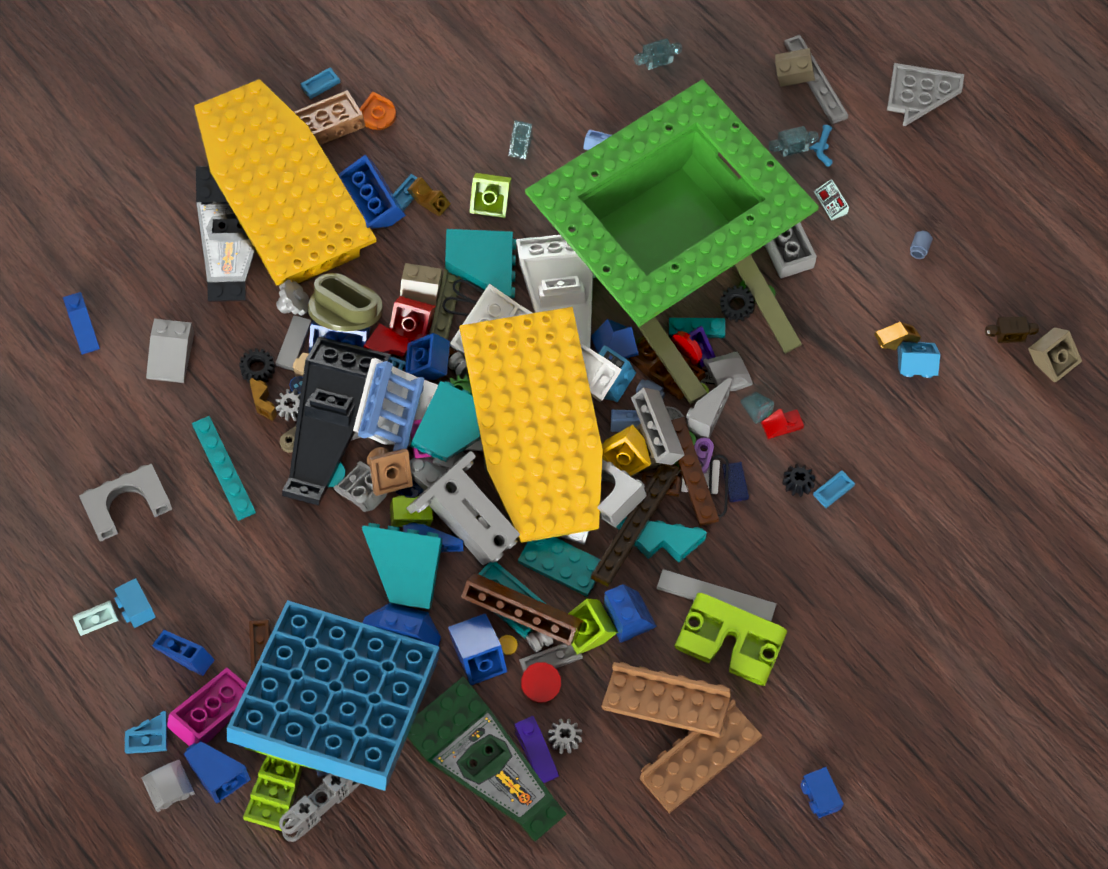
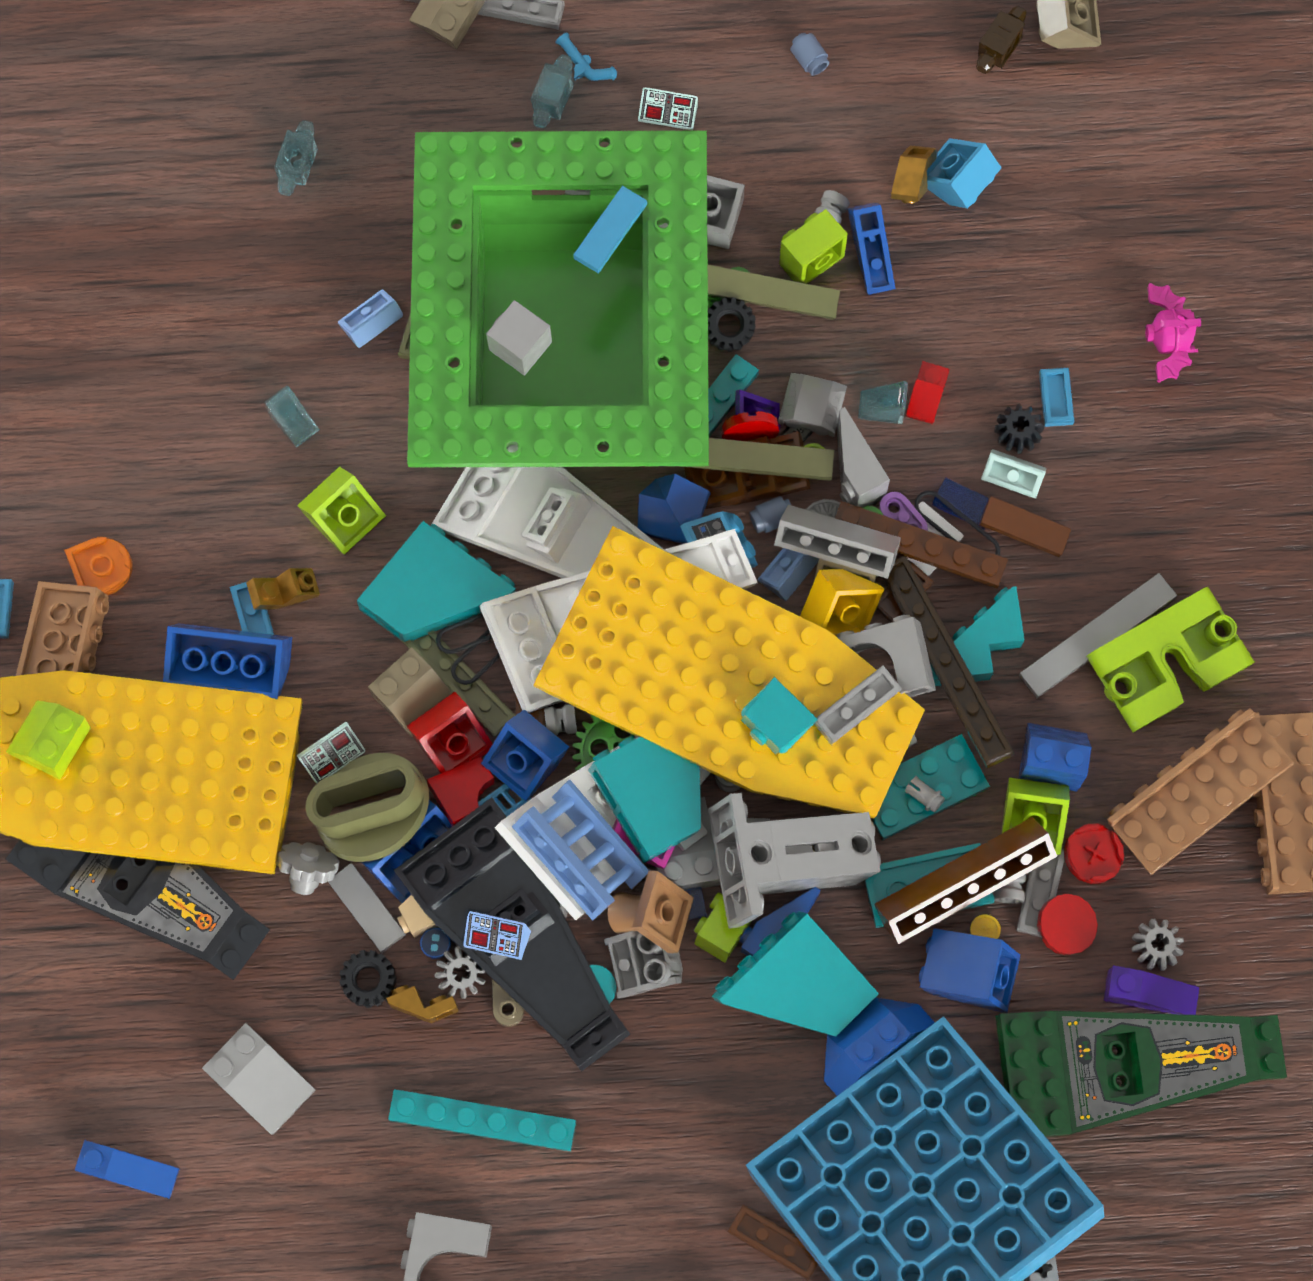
camera: 50 degrees left, 10 degrees up
(267, 140) = (49, 738): none -> lime slope
(317, 398) = (496, 935): none -> slope
(361, 272) = (331, 752): none -> slope
(532, 450) = (777, 717): none -> teal torso
(555, 562) = (926, 795): none -> light grey pin
(572, 488) = (857, 705): none -> light grey tile
(591, 671) = (1093, 853): none -> red tile
(628, 190) = (519, 337): none -> light grey head
(724, 195) = (610, 229): none -> dark azure tile
(746, 518) = (1025, 526): none -> reddish brown tile
(773, 495) = (1013, 473): none -> light aqua slope
(811, 313) = (812, 247): none -> lime brick
(838, 343) = (871, 247): none -> blue slope
(843, 310) = (834, 203): none -> light grey wheel
(917, 519) = (1171, 331): none -> dark pink helmet

